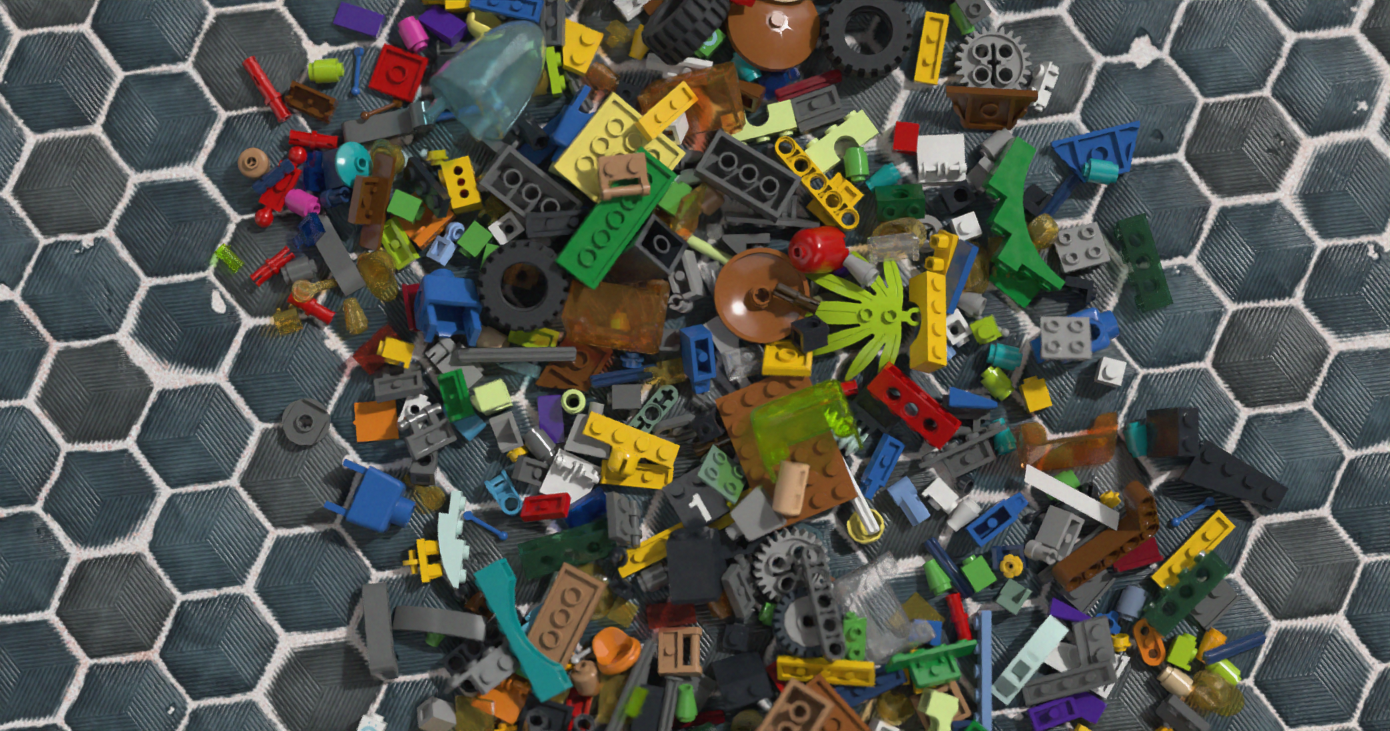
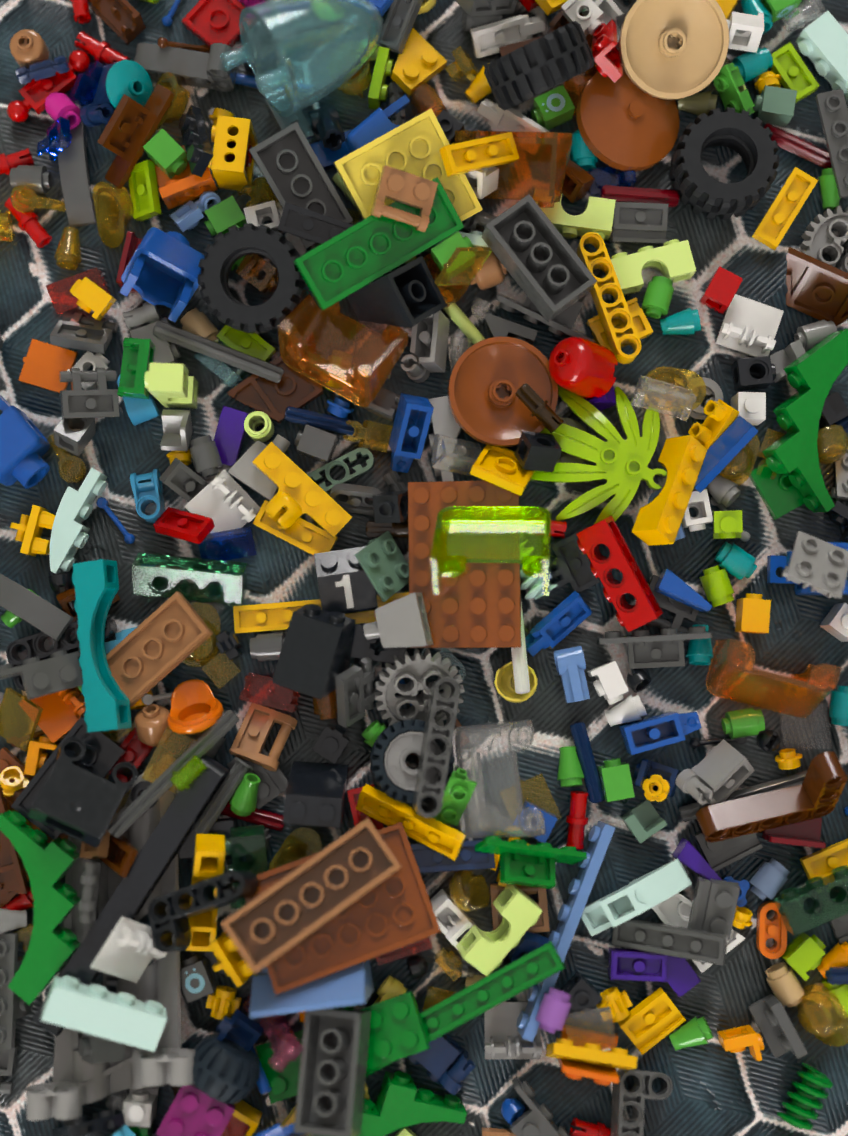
camera: 25 degrees right, 0 degrees up
(615, 555) = (235, 605): black hinge -> none
(623, 520) = (254, 568): dark grey plate -> none
(790, 487) = (450, 608): light nougat brick -> none
(863, 271) = (622, 408): light grey cone -> none
(899, 202) = (689, 352): dark green brick -> none
(1071, 497) = (751, 740): white sticker -> none

